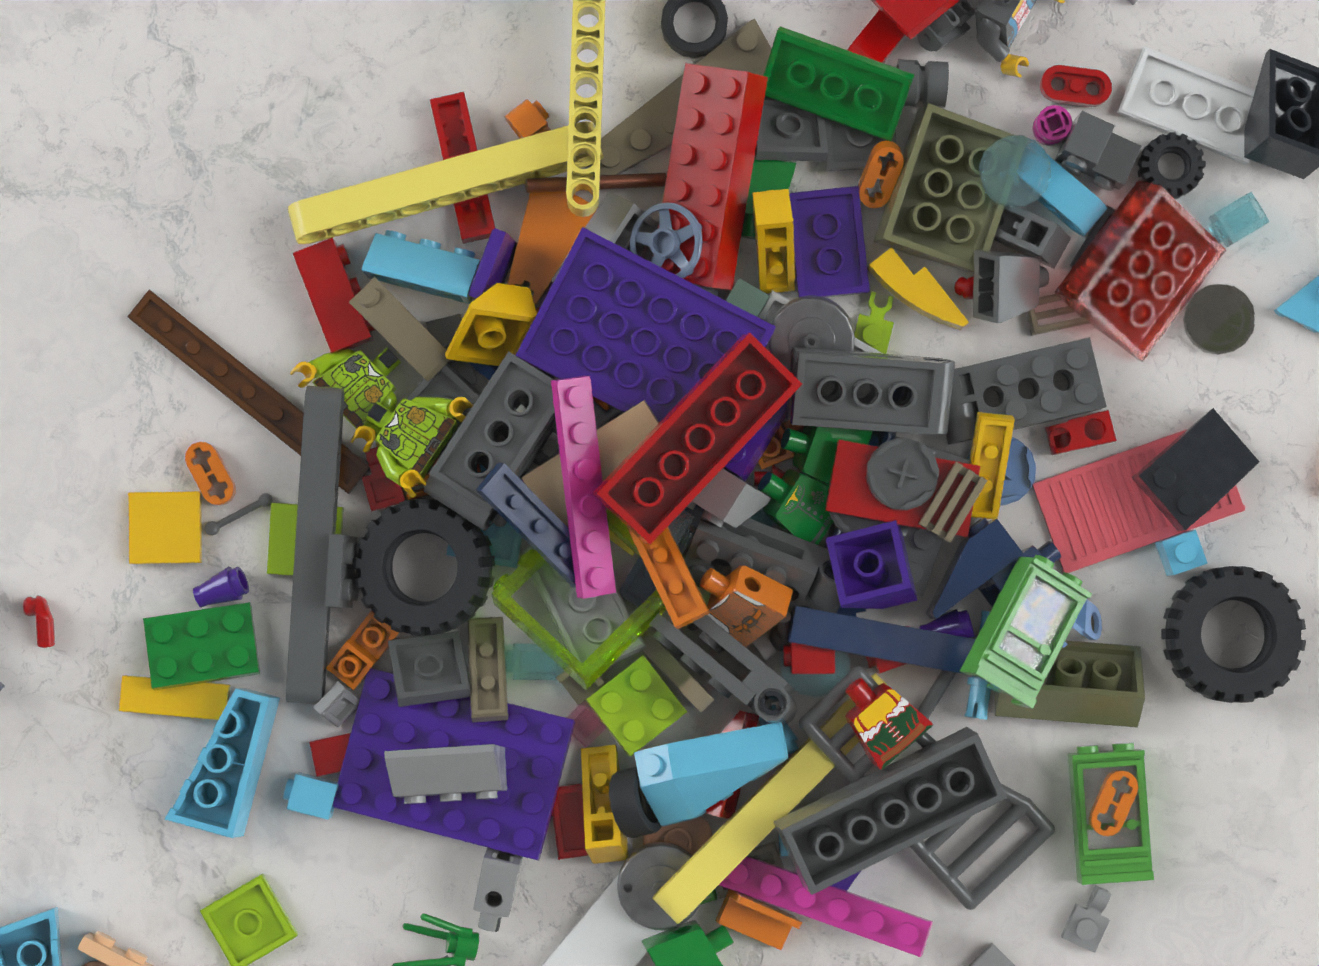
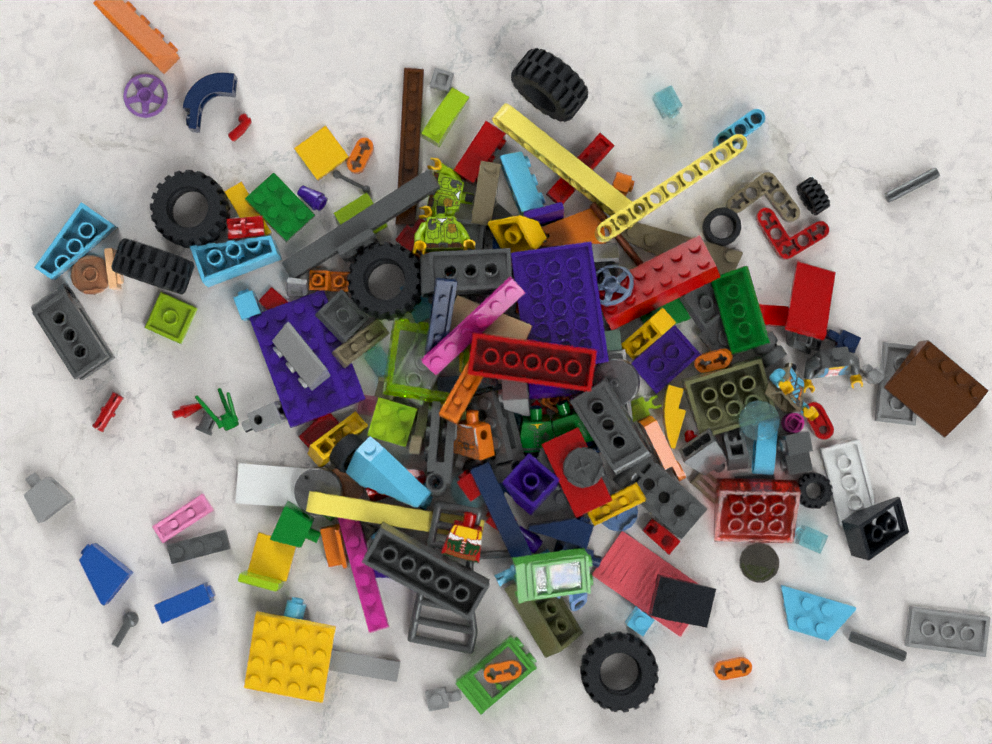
camera: 55 degrees right, 0 degrees up
(62, 787) = (170, 192): none -> black tyre
(157, 893) = (152, 266): none -> black tyre
(185, 275) = (441, 80): none -> light grey tile
(196, 717) = (245, 227): none -> red hips
(243, 309) = (444, 117): none -> lime slope
(309, 122) = (549, 84): none -> black tyre
(949, 340) = (660, 446): none -> piece
(960, 517) = (590, 499): dark tan tile -> none
(1002, 100) = (787, 391): none -> torso

